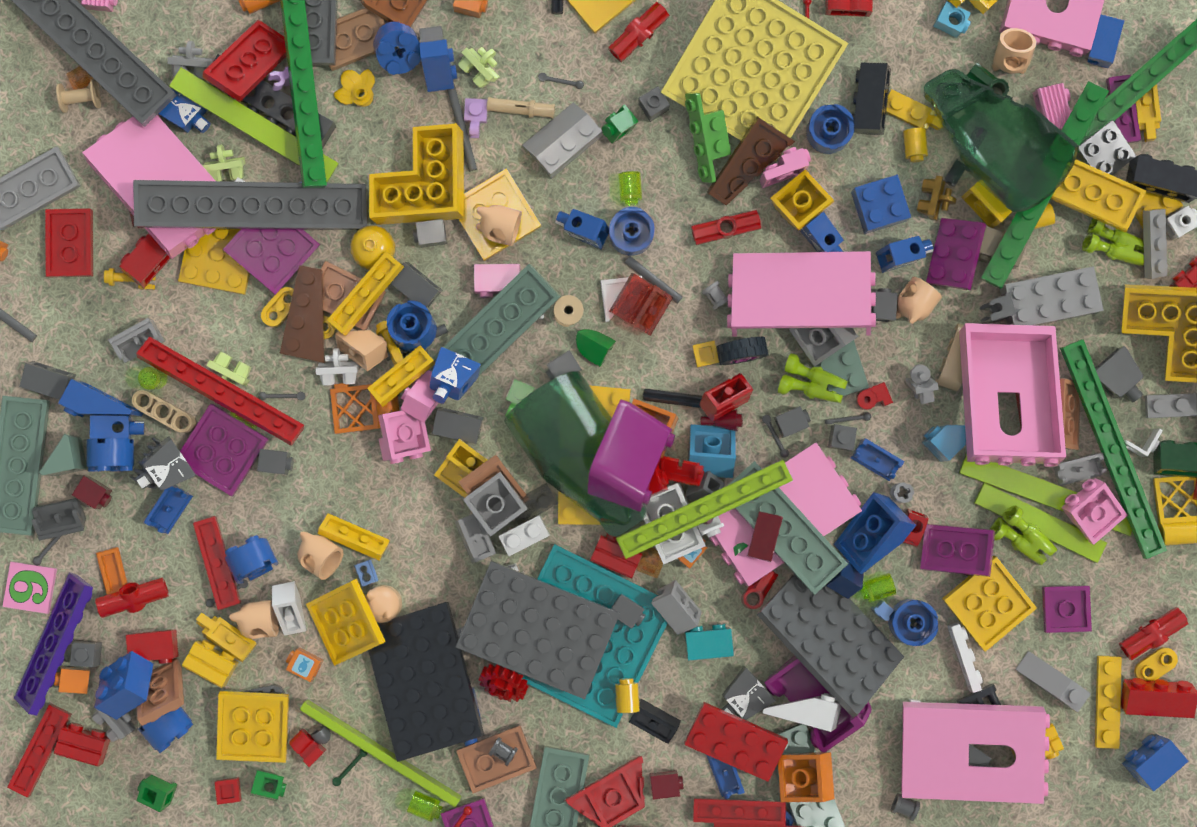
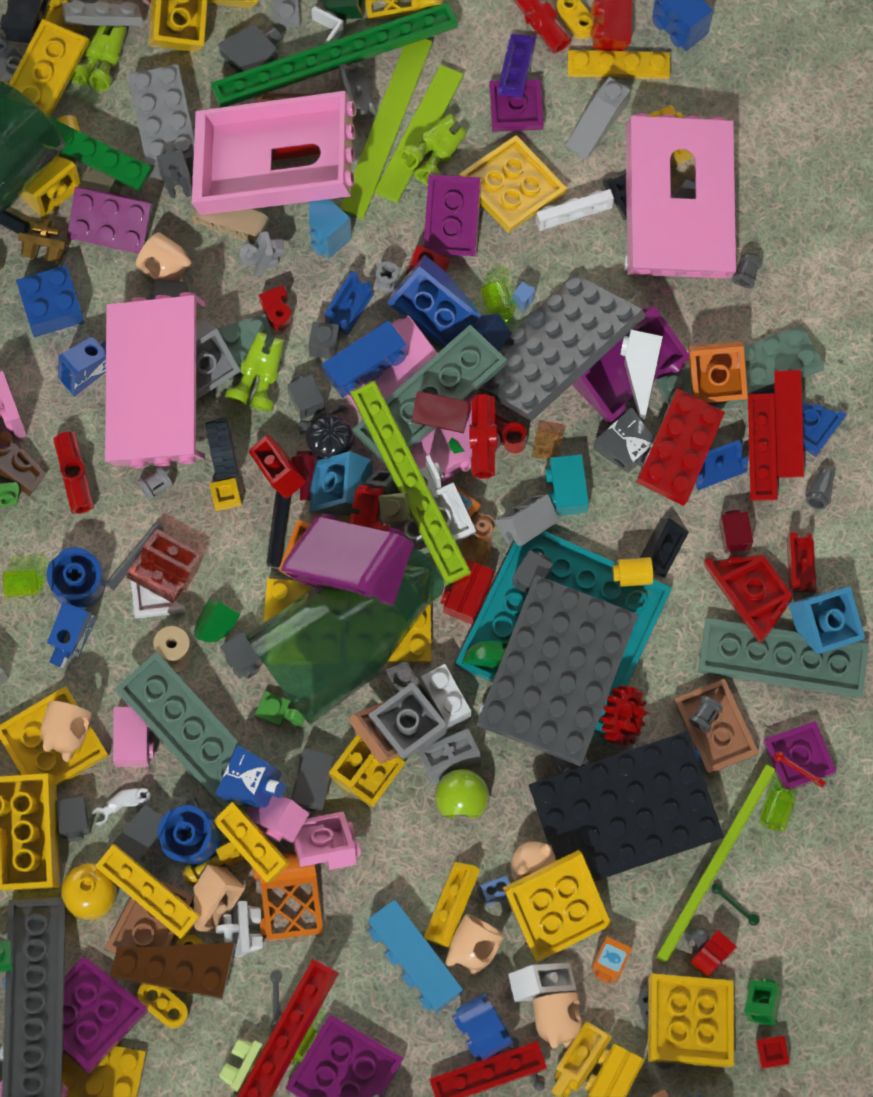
camera: 90 degrees left, 15 degrees down
(275, 462) = (359, 1004): dark grey brick -> none
(311, 506) = (414, 956): none -> dark azure brick
(440, 547) = (461, 794): none -> lime helmet
(447, 271) = (124, 798): none -> white arm
(560, 571) = (486, 653): none -> green brick
(674, 569) = (488, 527): none -> nougat plate
(681, 496) = (394, 508): none -> olive plate
(745, 572) = (483, 436): none -> red piece
(748, 627) = (547, 444): none -> clear orange slope
(754, 441) = (329, 436): none -> black piece
(801, 200) = (44, 384): yellow slope -> none
(818, 473) = (365, 359): none -> blue brick
(866, 416) = (299, 317): dark grey hinge -> none
(903, 253) = (108, 270): blue torso -> none
(926, 622) = (524, 260): blue brick -> none
(1094, 510) = (403, 75): bright pink plate -> none
(1104, 610) = (516, 65): none -> dark purple tile

